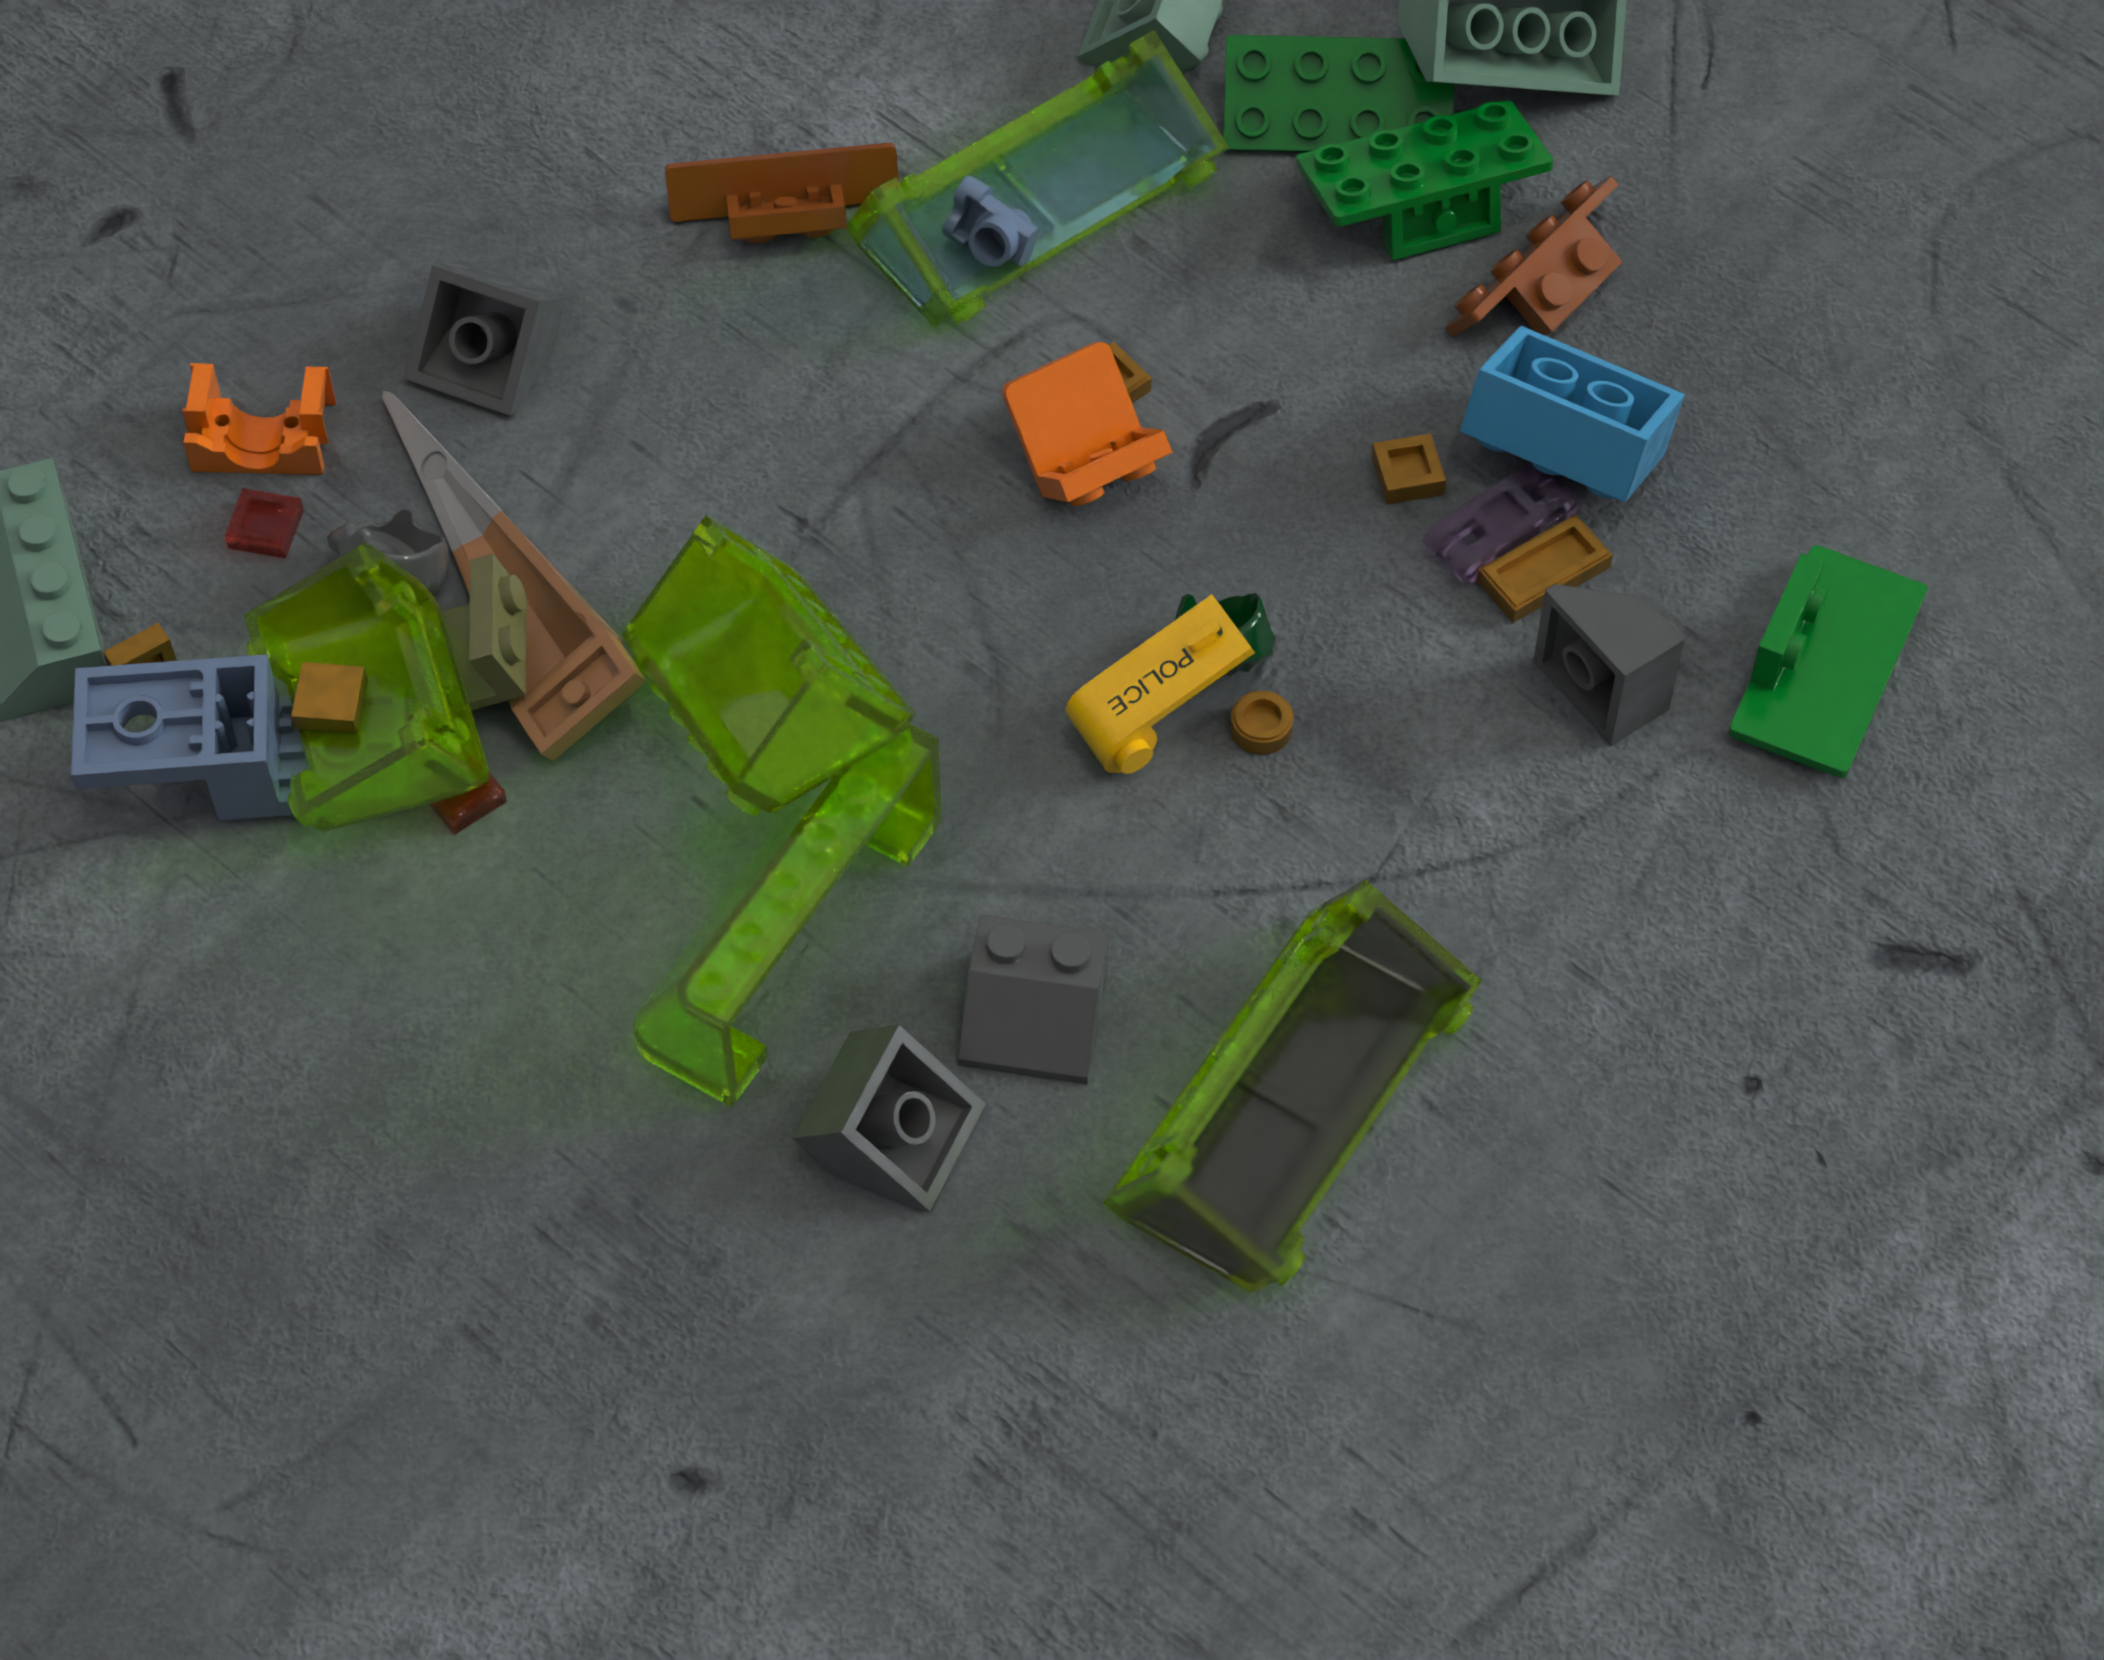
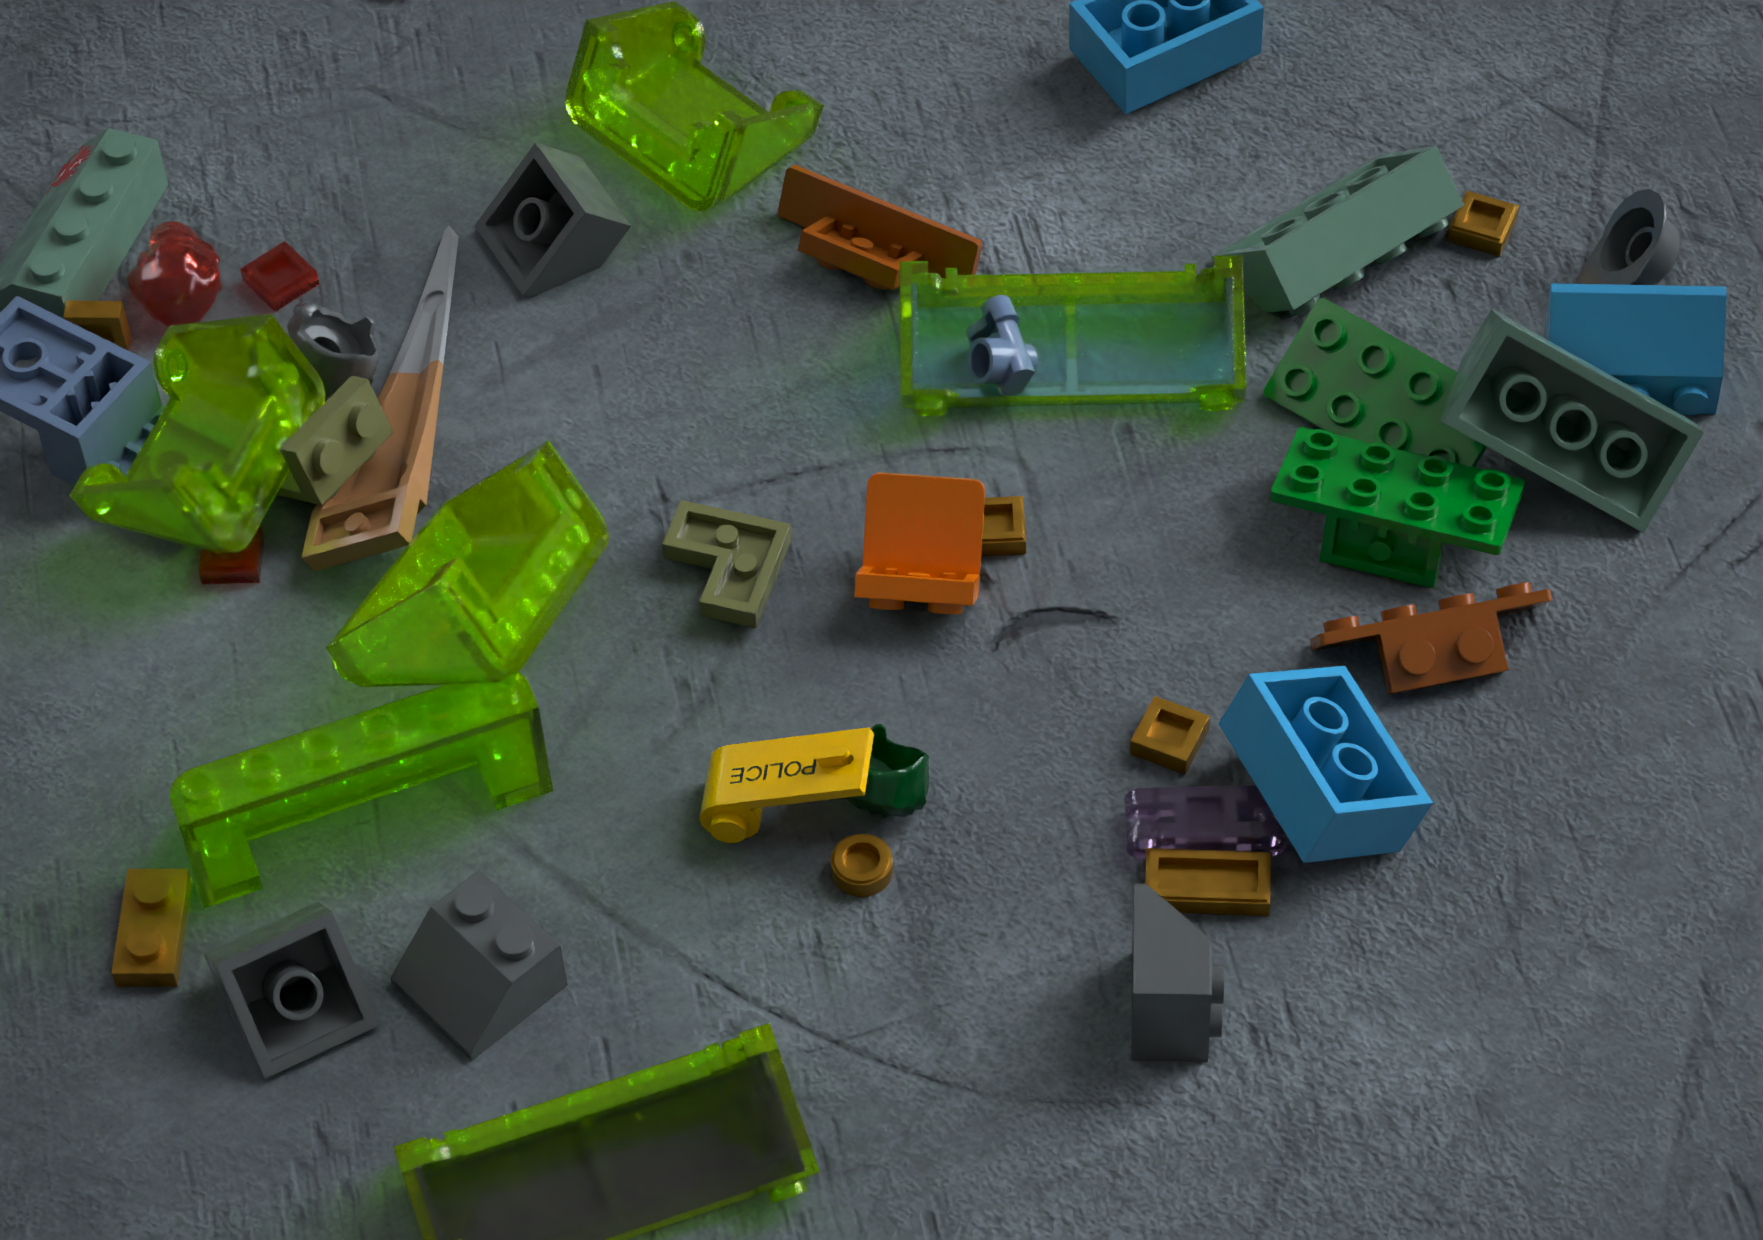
camera: 40 degrees right, 5 degrees down
(173, 574) = (176, 275): none -> clear red hair
(235, 442) = (322, 208): orange piece -> none
(329, 697) = (183, 424): pearl gold tile -> none
(507, 183) = (669, 116): none -> clear neon green windscreen
(707, 1150) = (152, 928): none -> pearl gold plate
(918, 520) = (739, 550): none -> olive plate
(1826, 659) = (1372, 1095): green bracket -> none

